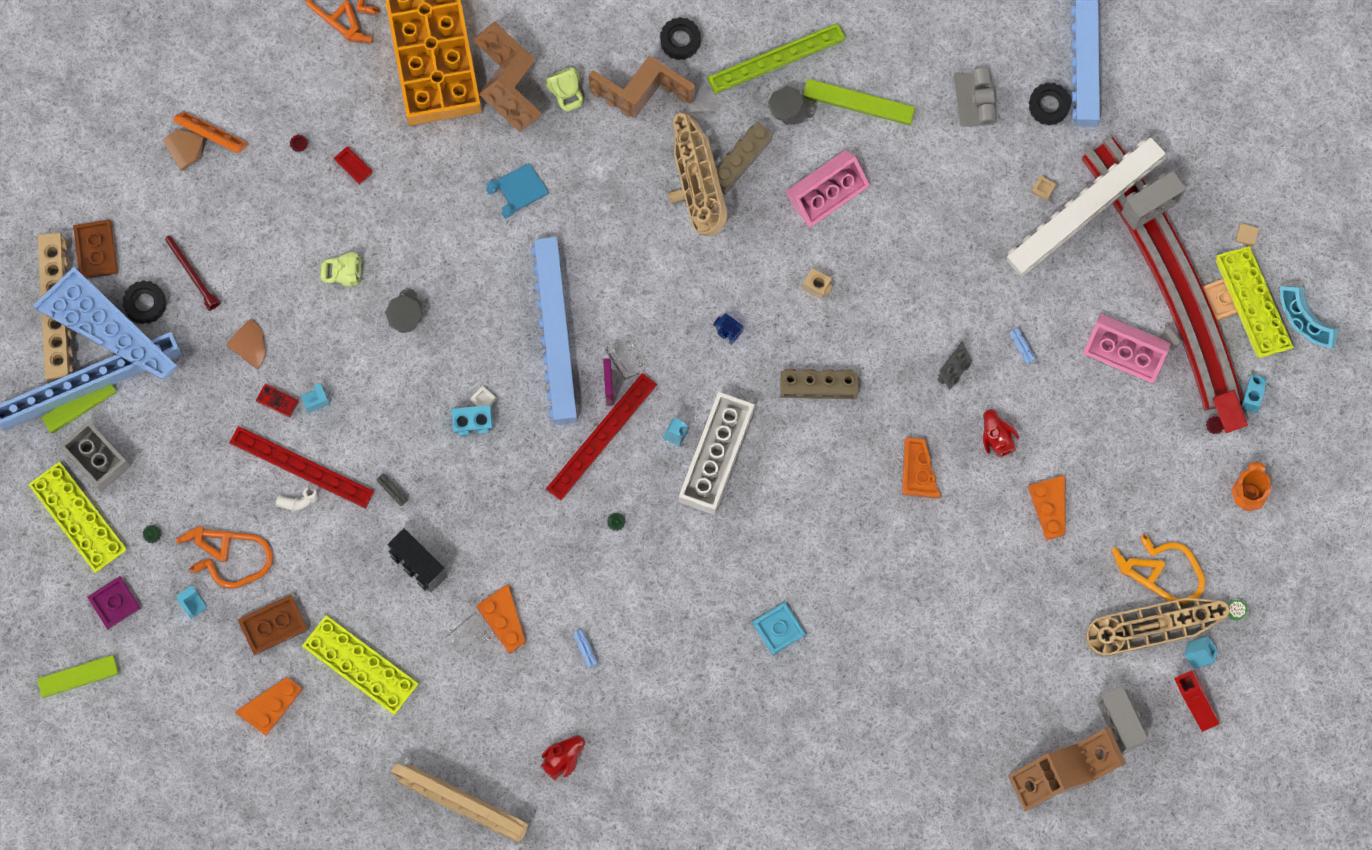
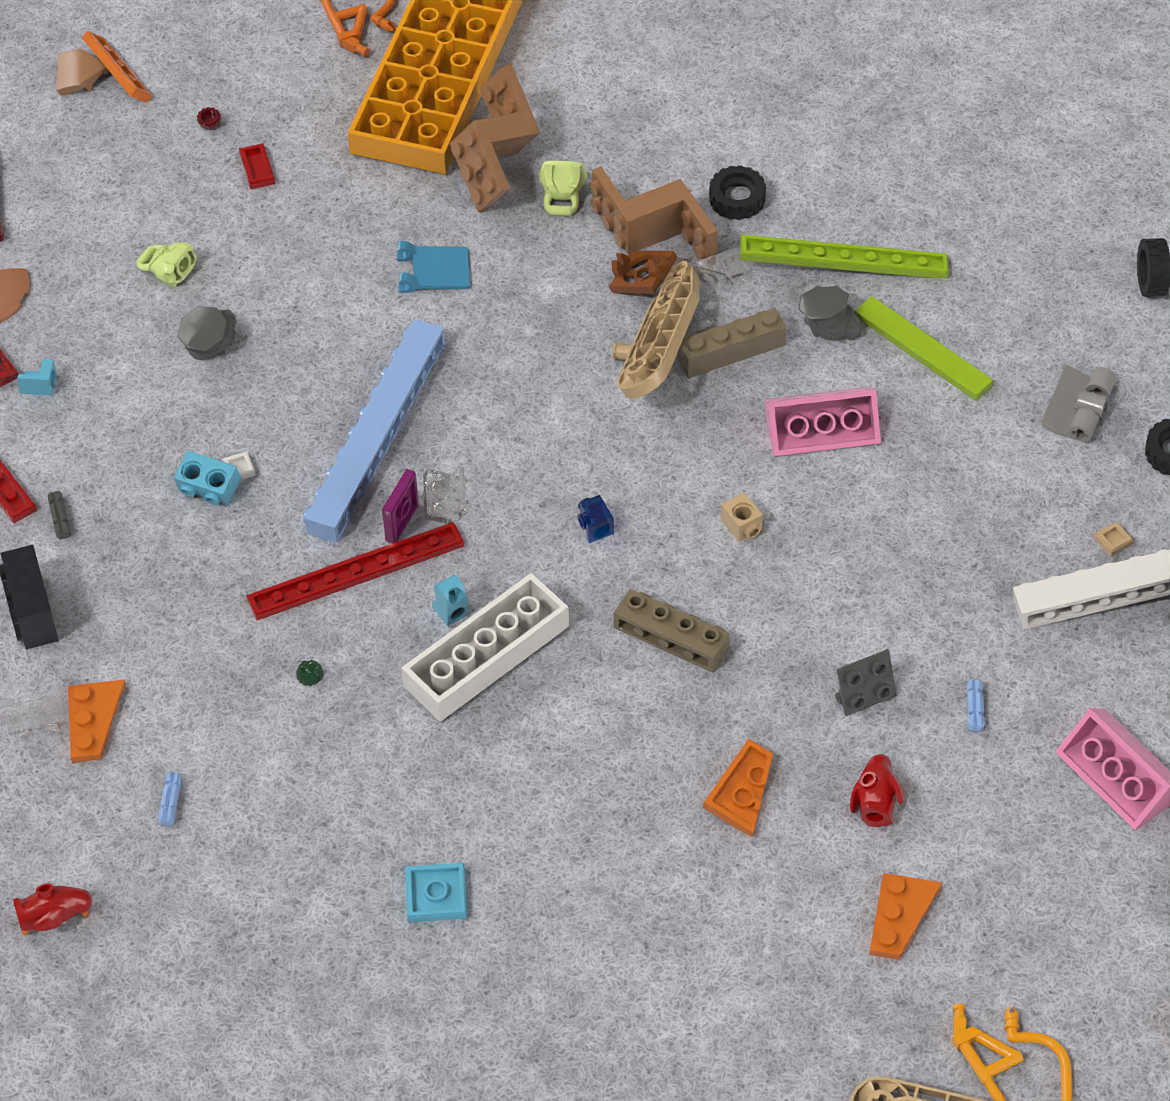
camera: 30 degrees right, 20 degrees down
(668, 141) = (657, 263): none -> dark orange piece

